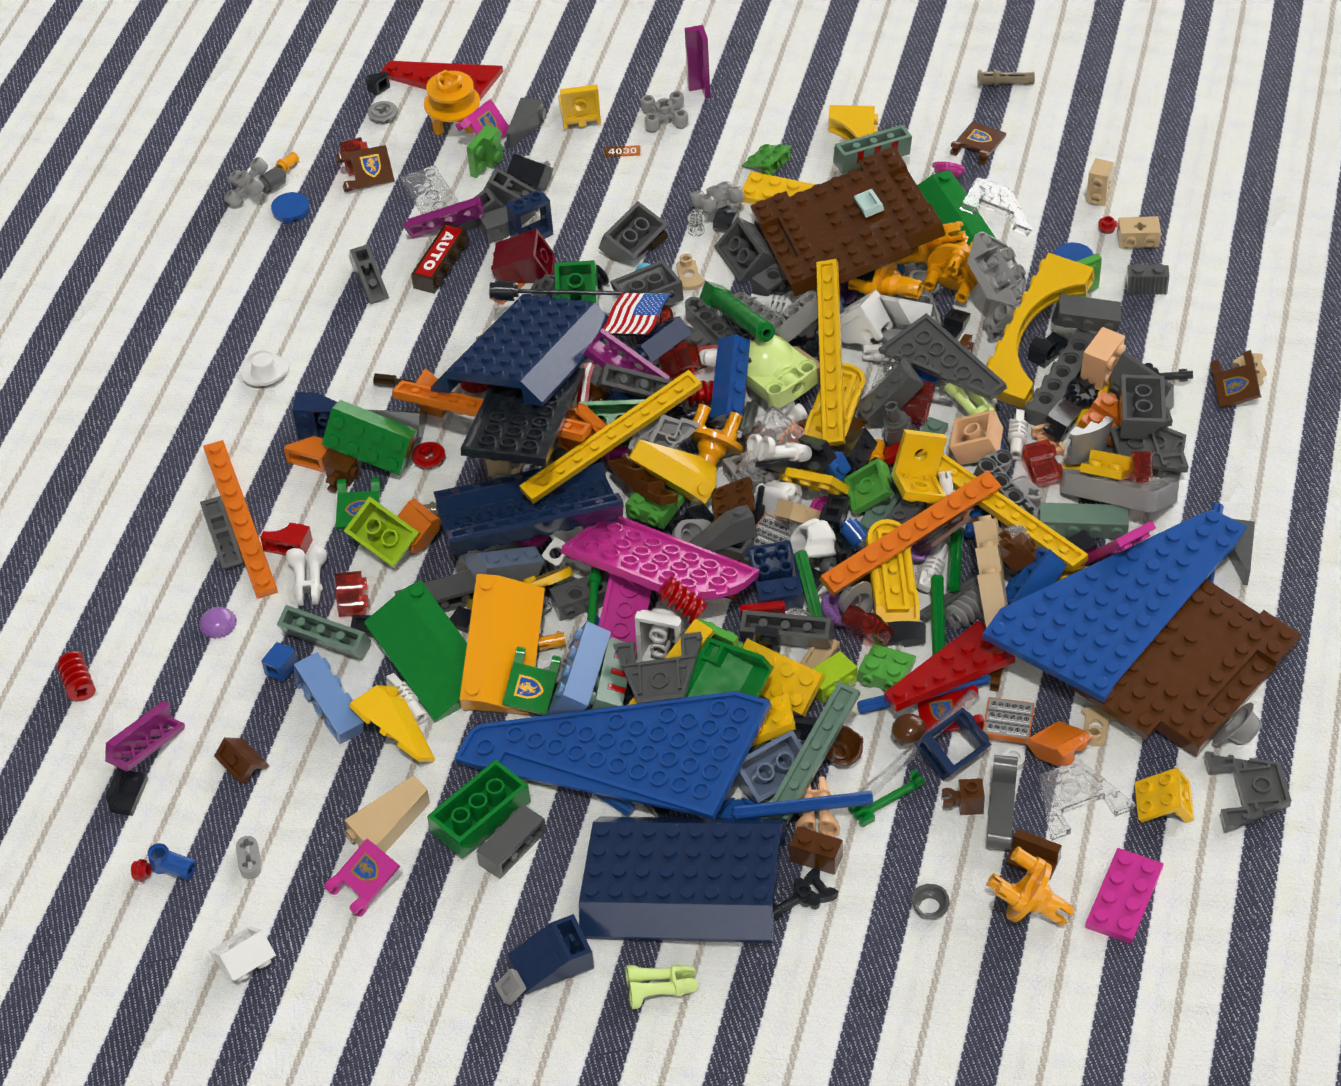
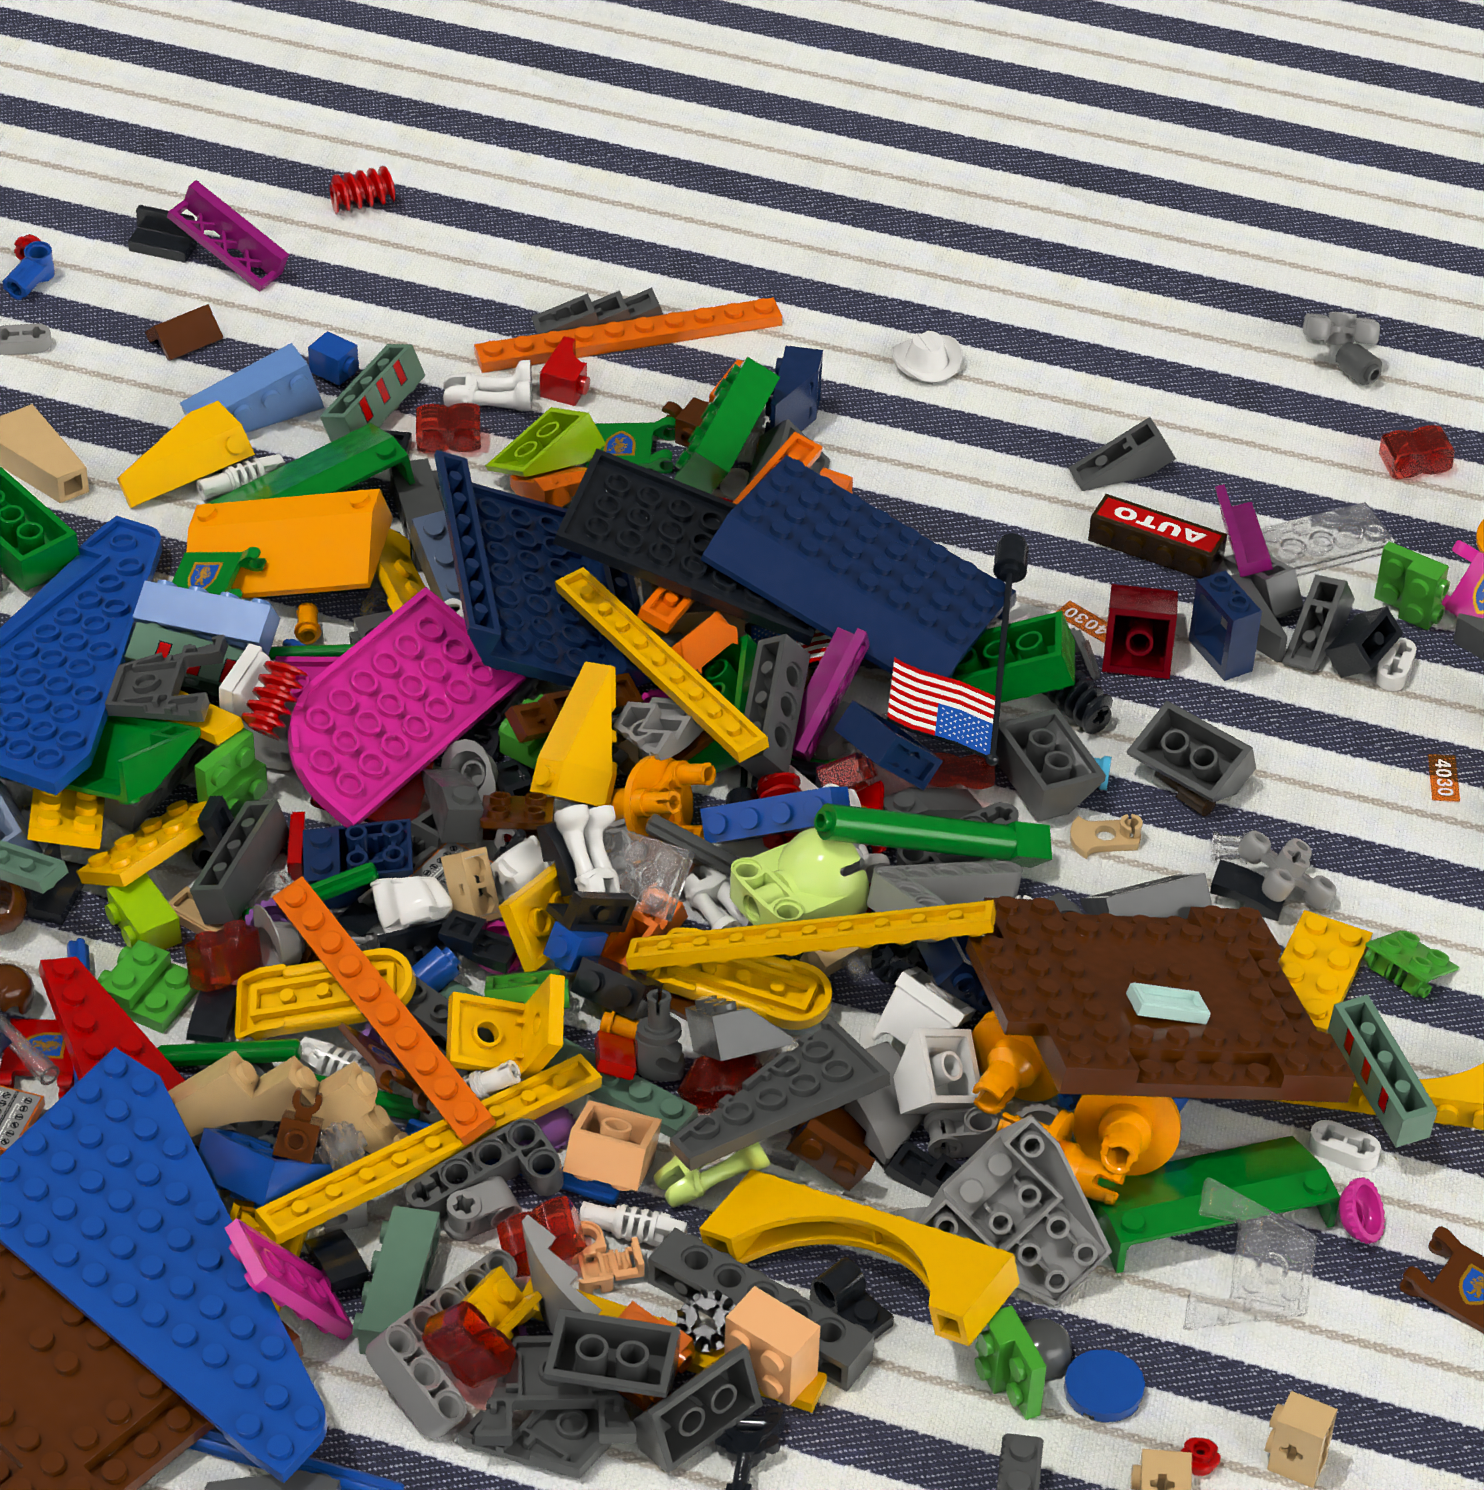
camera: 90 degrees right, 5 degrees down
(217, 622) = (436, 316): medium lavender hat -> none
(288, 162) = (1405, 382): light orange pin -> none
(290, 207) = (1299, 387): blue tile -> none
(369, 167) = (1382, 462): reddish brown flag -> none
(388, 380) = (885, 480): dark brown axle -> none
(1062, 418) = (641, 1275): black hinge -> none
(1086, 313) = (890, 1342): dark grey slope -> none

